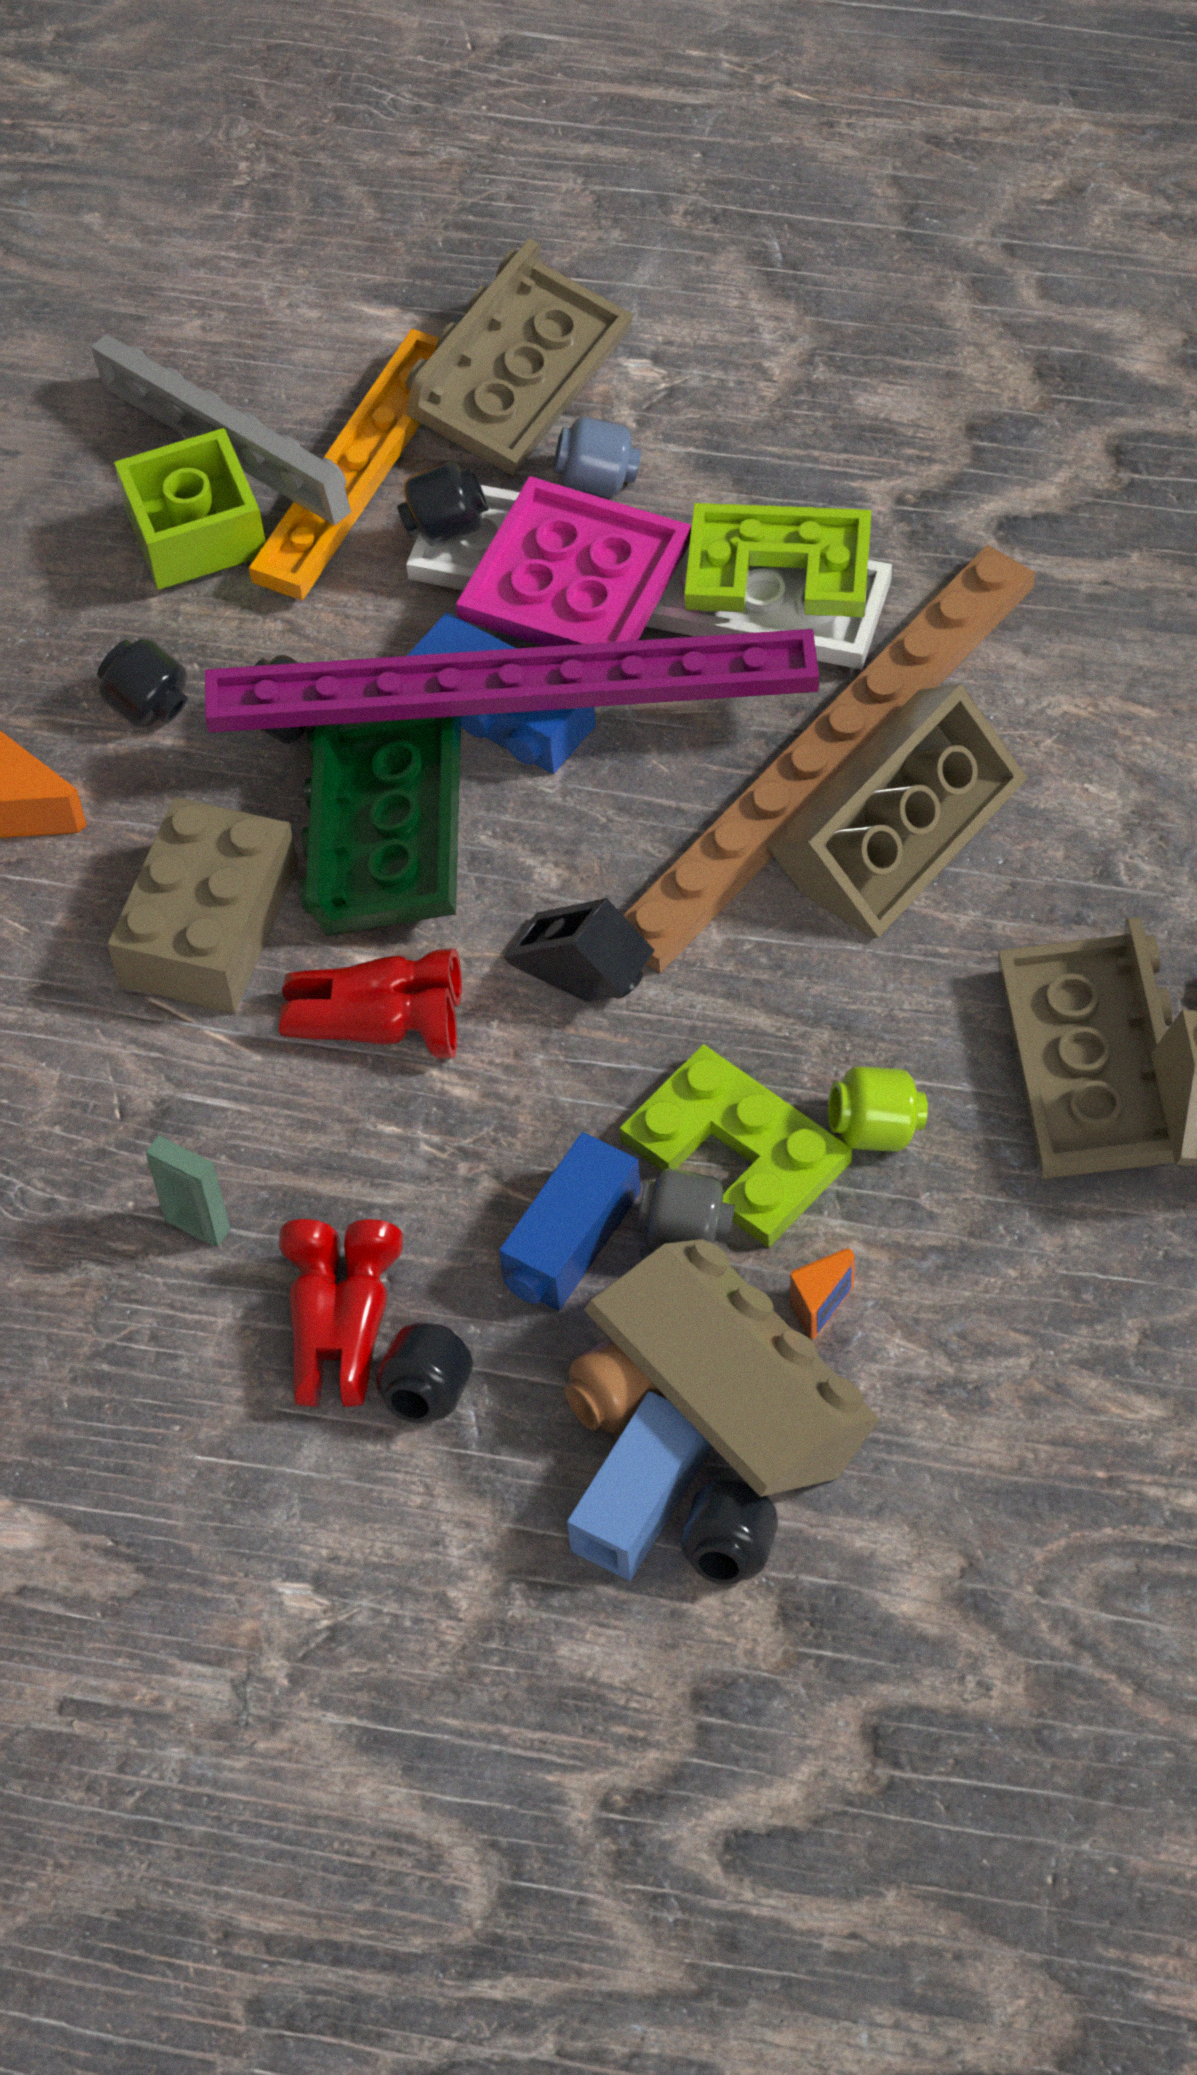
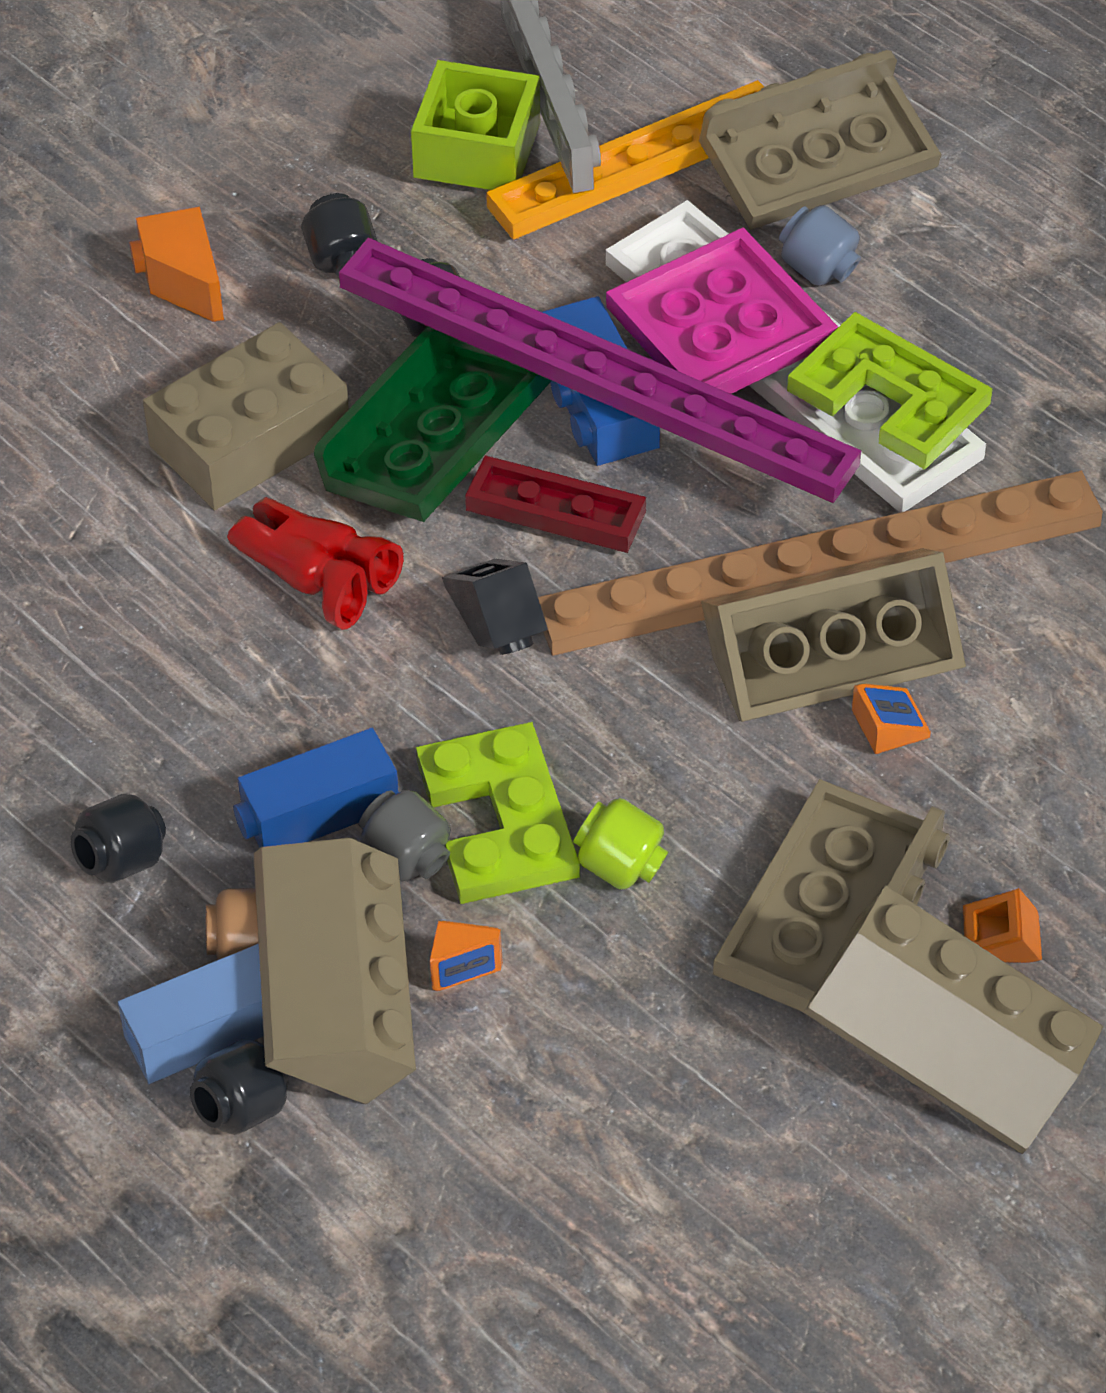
camera: 30 degrees right, 5 degrees down
(188, 1191) = (52, 607): sand green tile -> none
(334, 1318) = (95, 757): red piece -> none
(443, 504) = (660, 215): black head -> none
(555, 830) = (556, 503): none -> dark red plate
(1001, 862) = (888, 716): none -> orange slope

